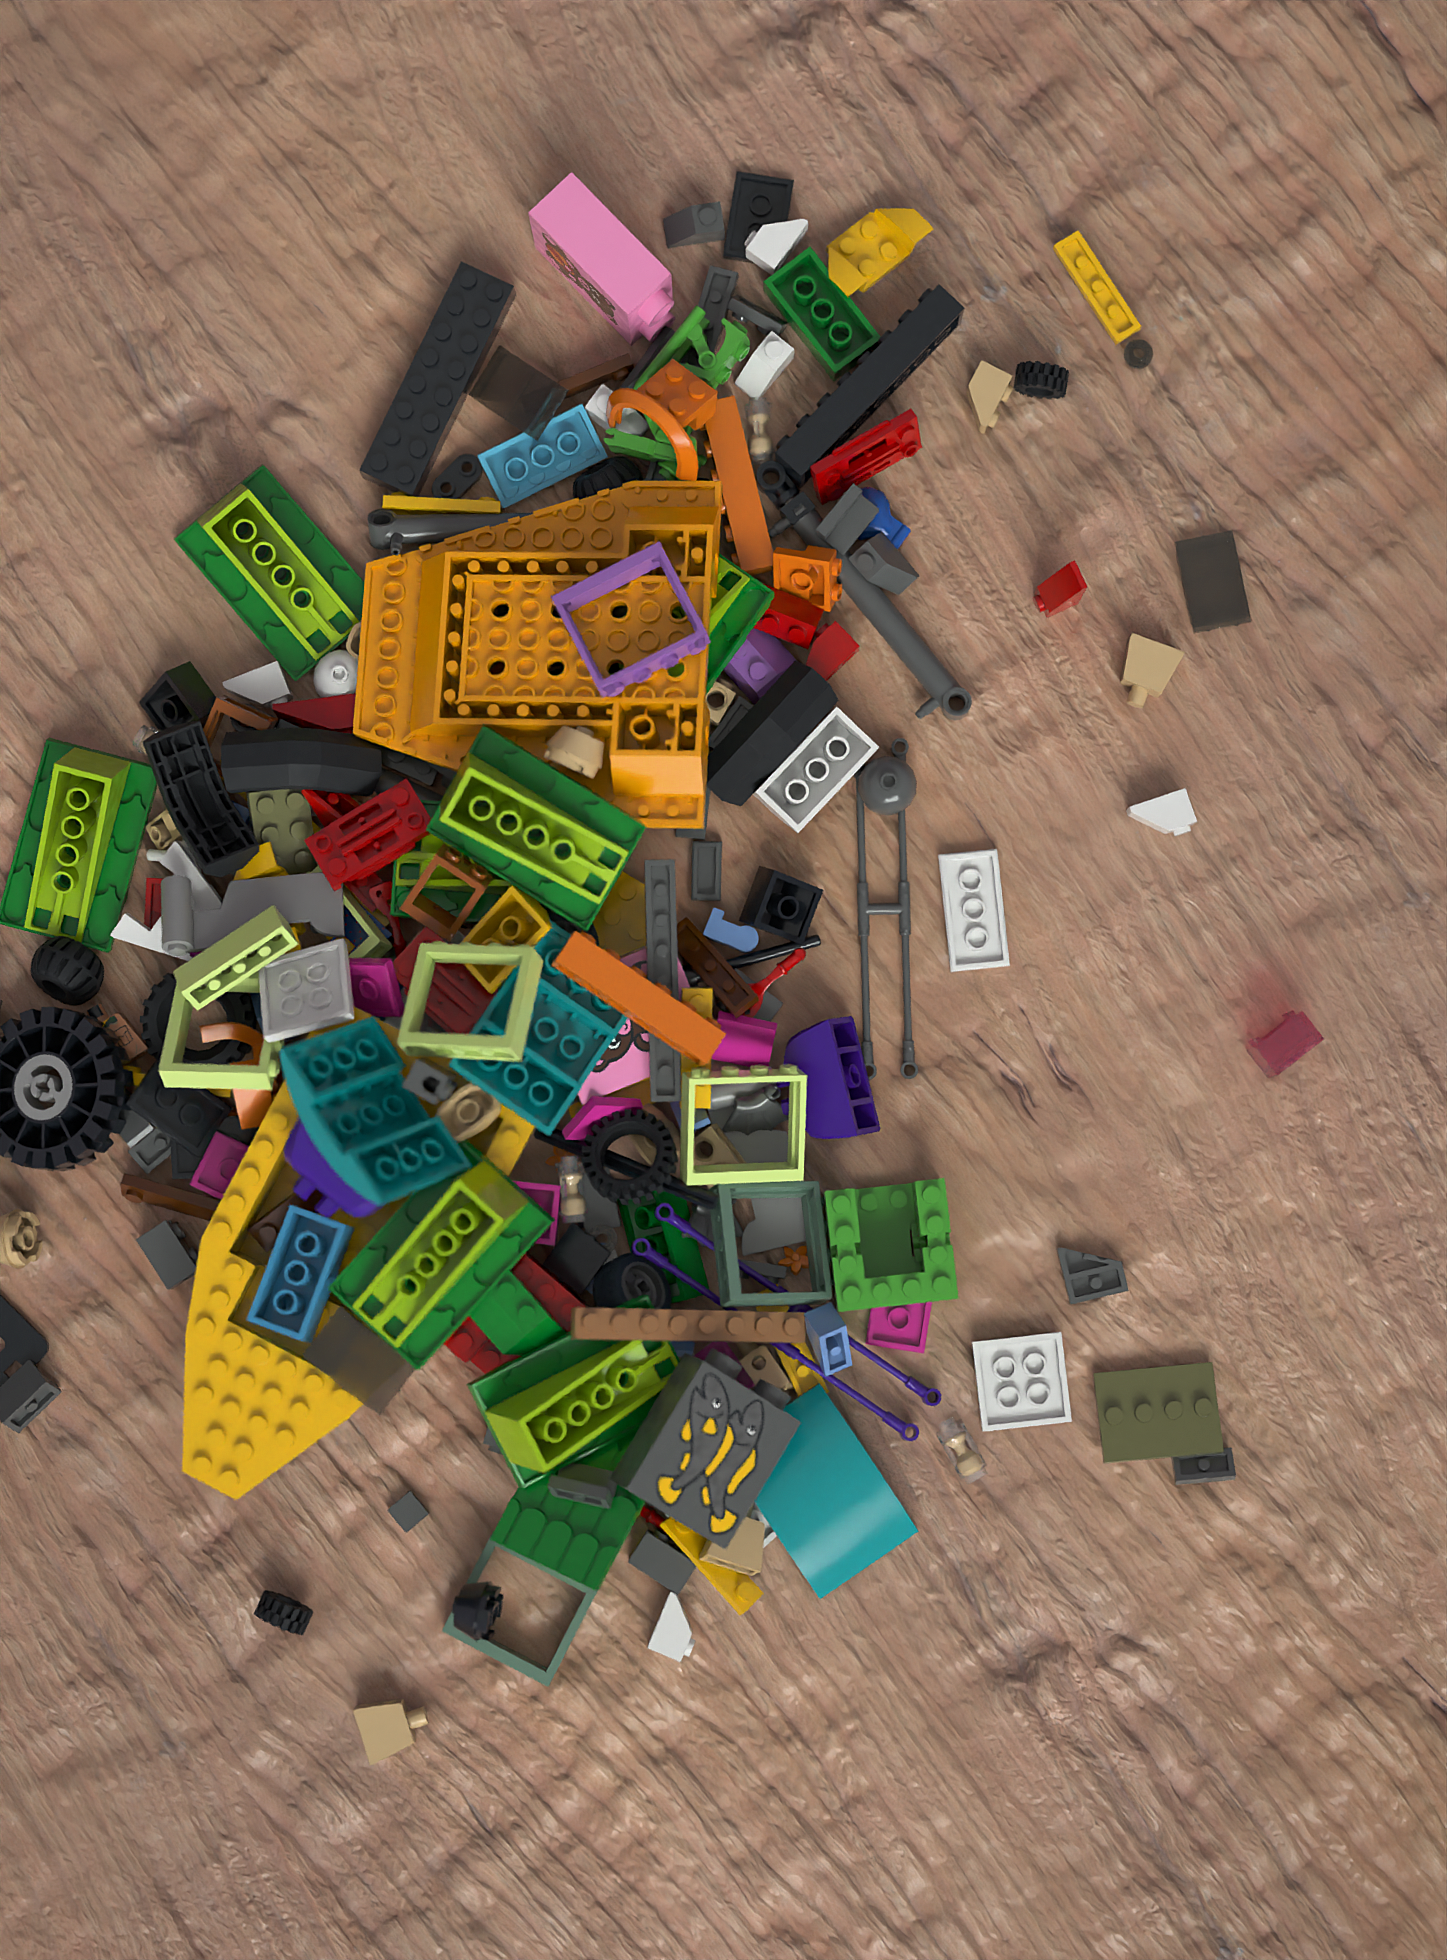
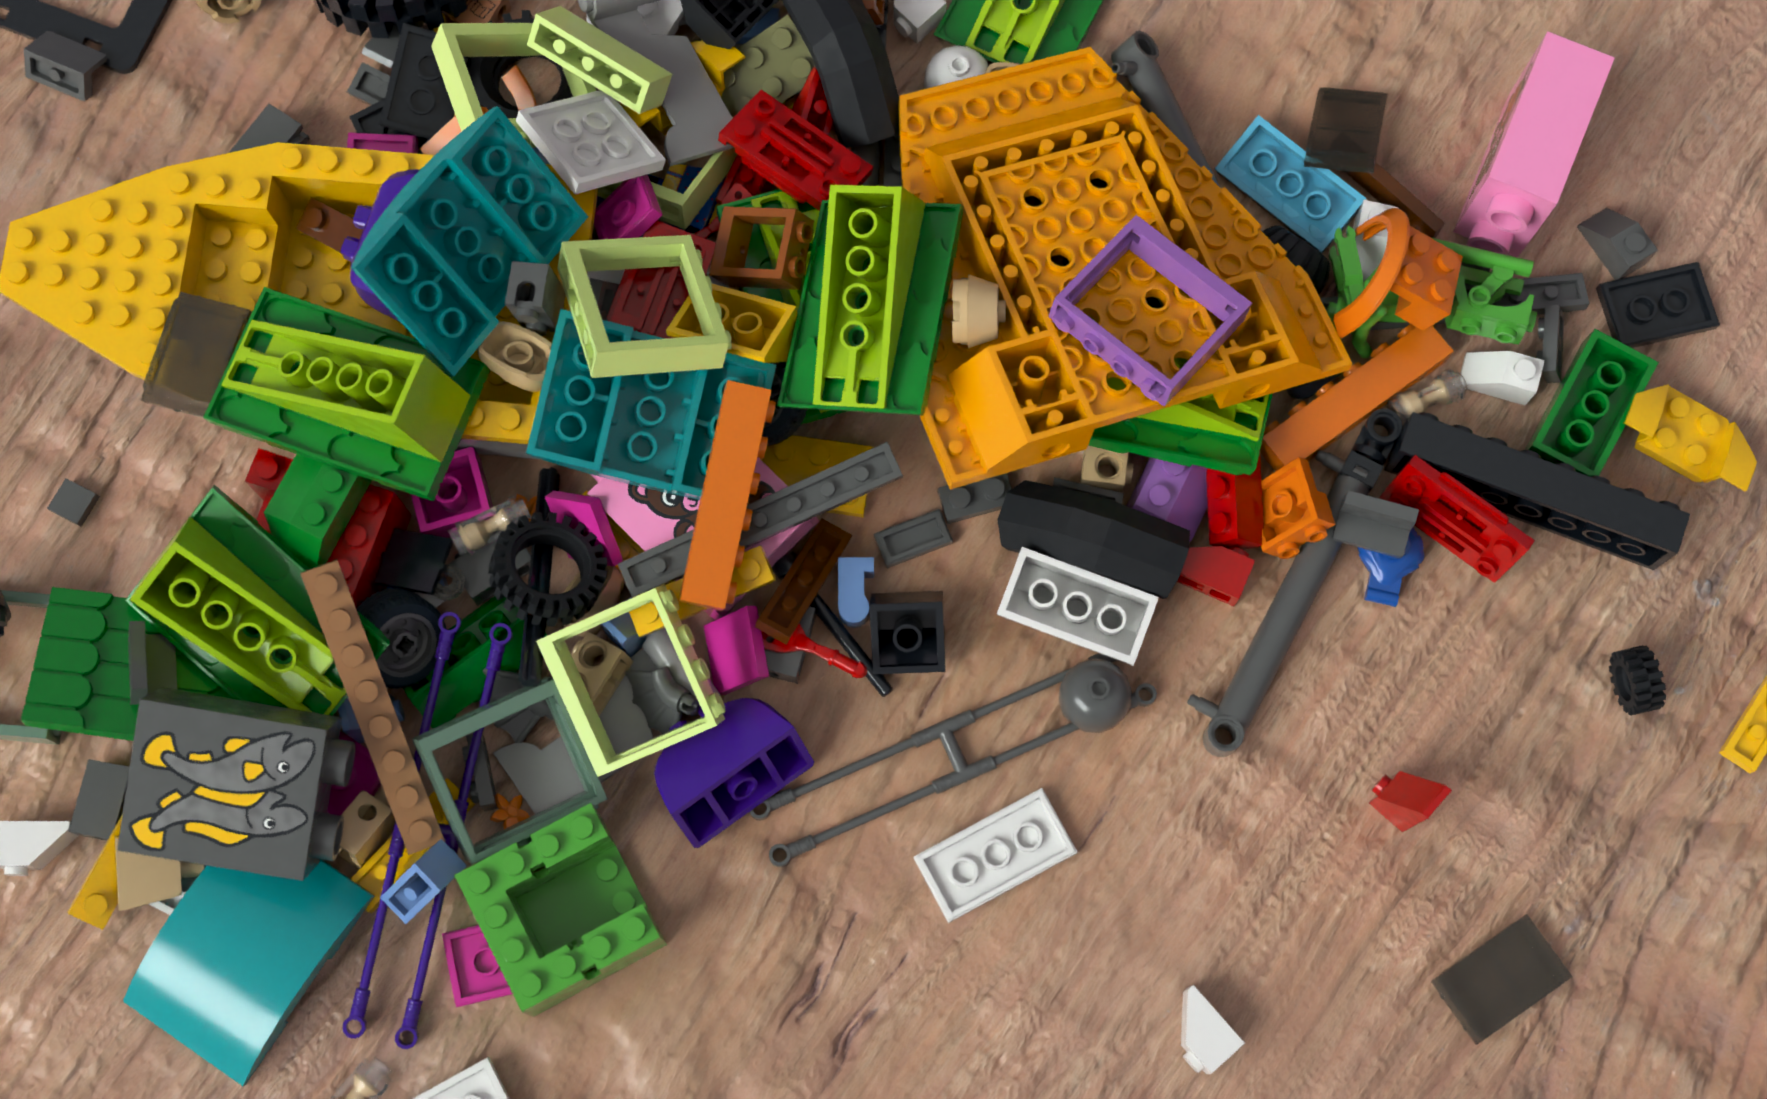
camera: 65 degrees right, 10 degrees down
(143, 1190) = (327, 91): reddish brown plate -> none
(299, 1274) = (274, 252): dark azure brick -> none
(324, 713) = (907, 62): red slope -> none
(404, 504) = (1172, 66): yellow plate -> none
(438, 381) = (1319, 48): black brick -> none
(458, 479) = (1222, 114): black plate -> none
(775, 243) = (1644, 328): white slope -> none
(884, 565) = (1343, 589): dark grey slope -> none
(985, 393) = (1593, 627): tan slope -> none
(1132, 360) = (1711, 785): clear smoke plate -> none
(1147, 668) = (1365, 942): tan torso -> none

